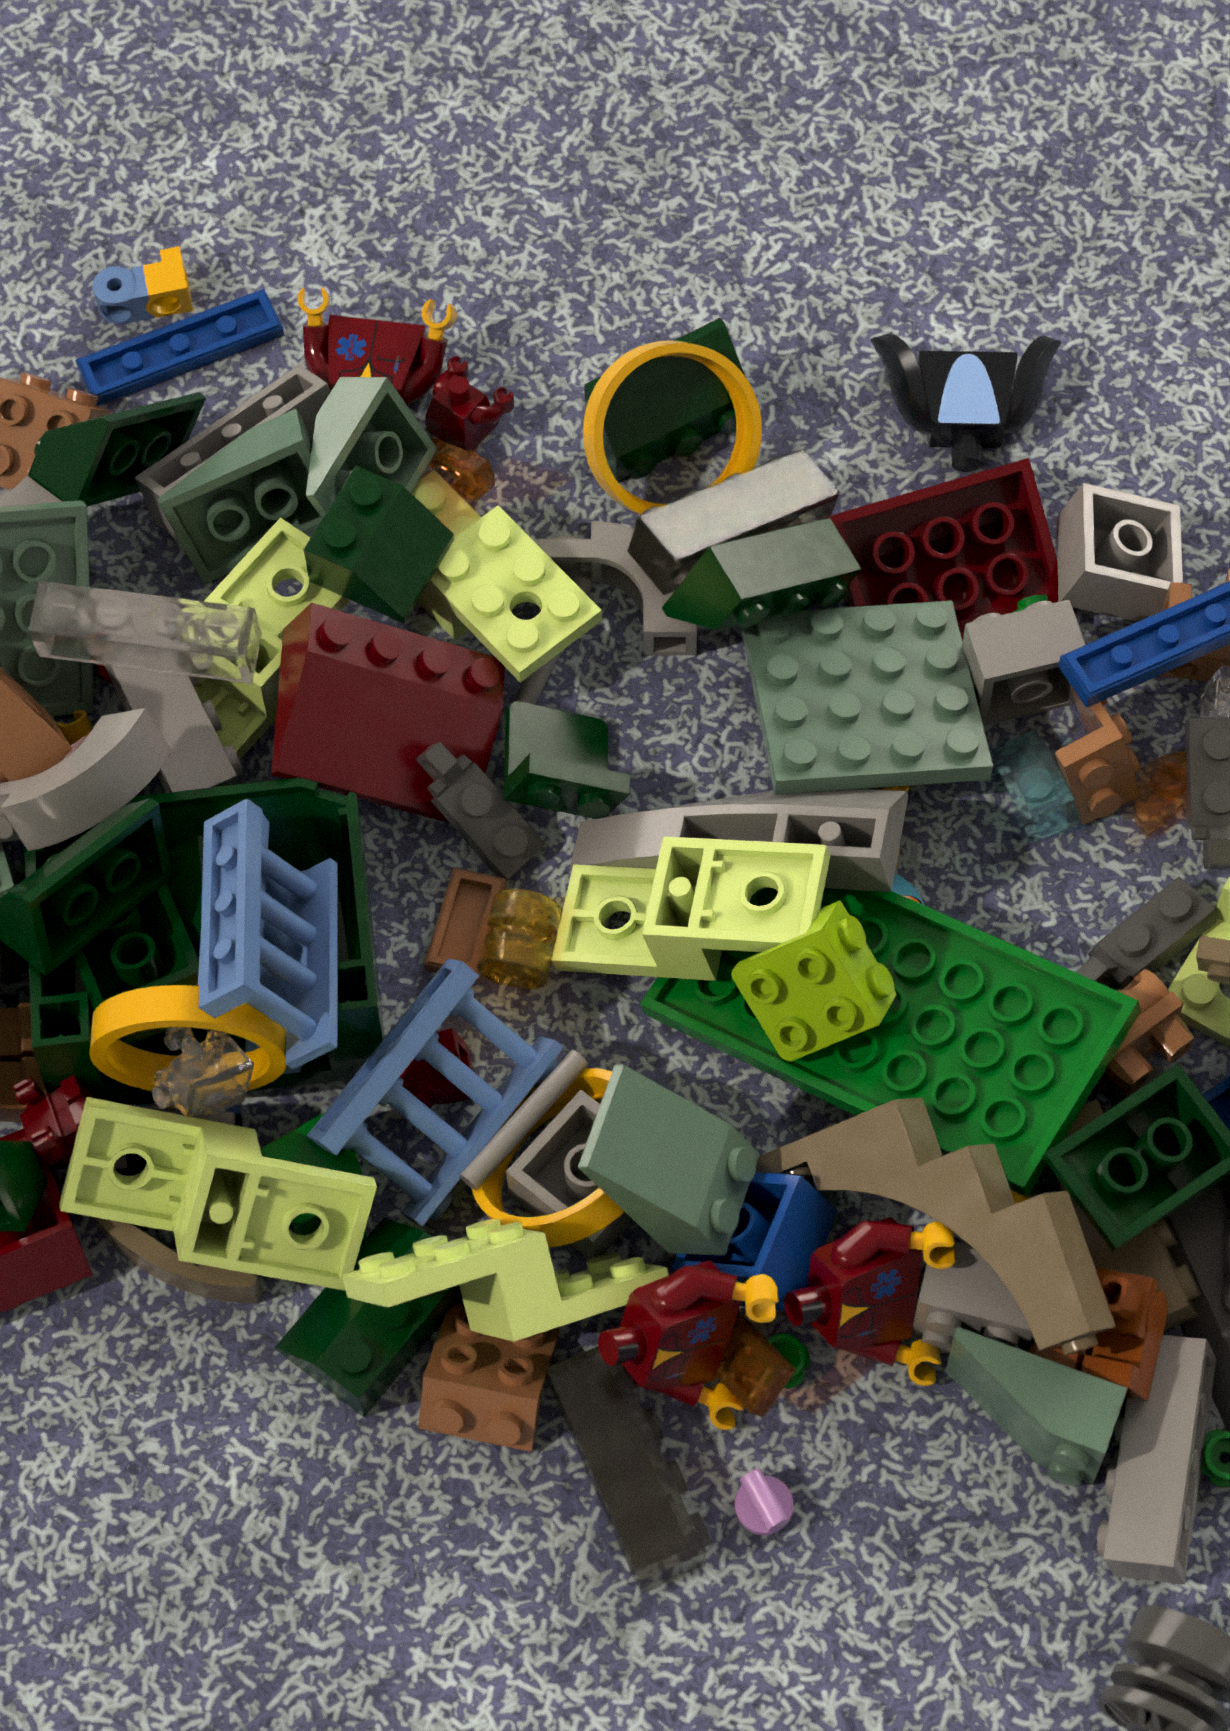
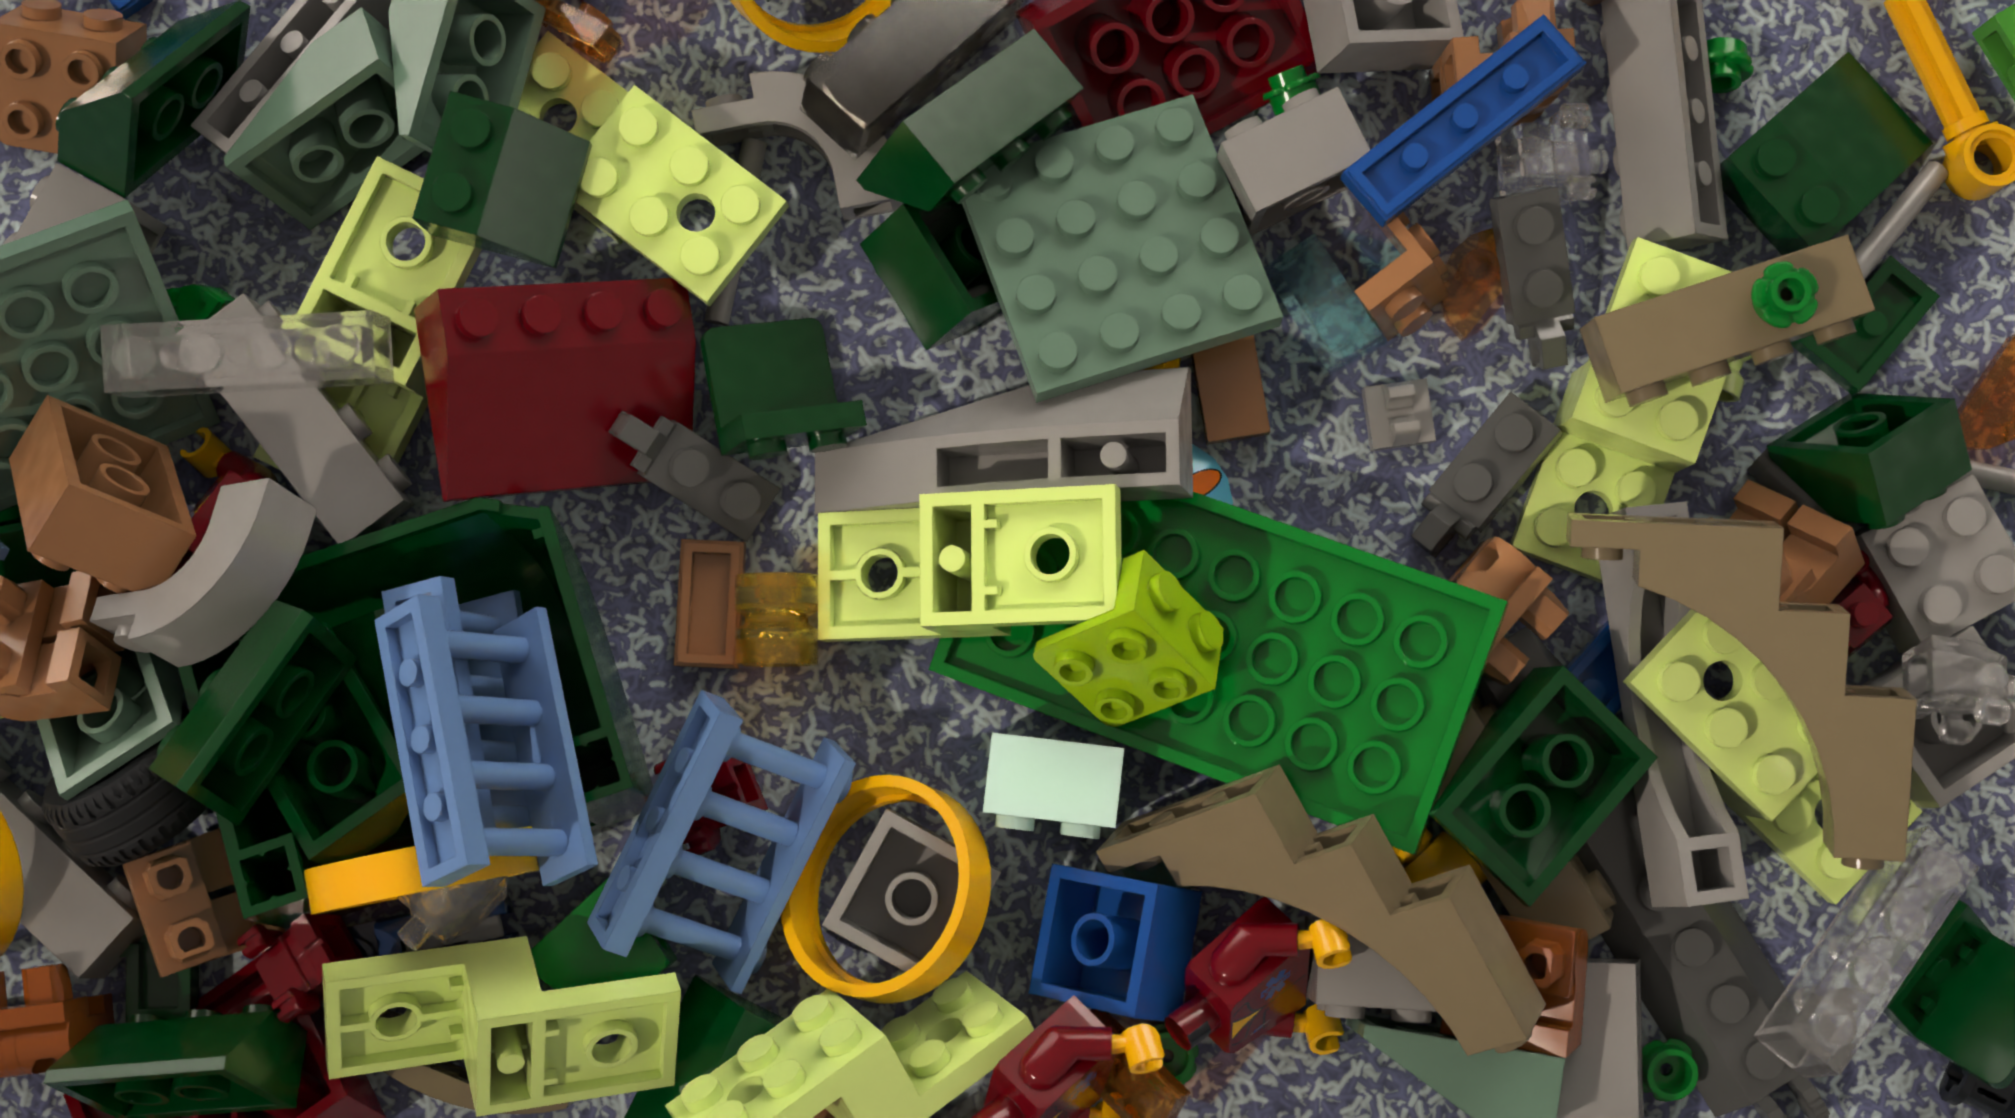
camera: 10 degrees left, 20 degrees up
(523, 1119) = (828, 853): light grey bar -> none
(669, 1164) = (1006, 904): sand green slope -> none
(711, 694) = (933, 271): none -> dark green slope
(735, 1087) = (1053, 782): none -> light aqua brick
(941, 832) = (1231, 391): none -> medium nougat tile
(1081, 882) = (1398, 415): none -> light grey tile

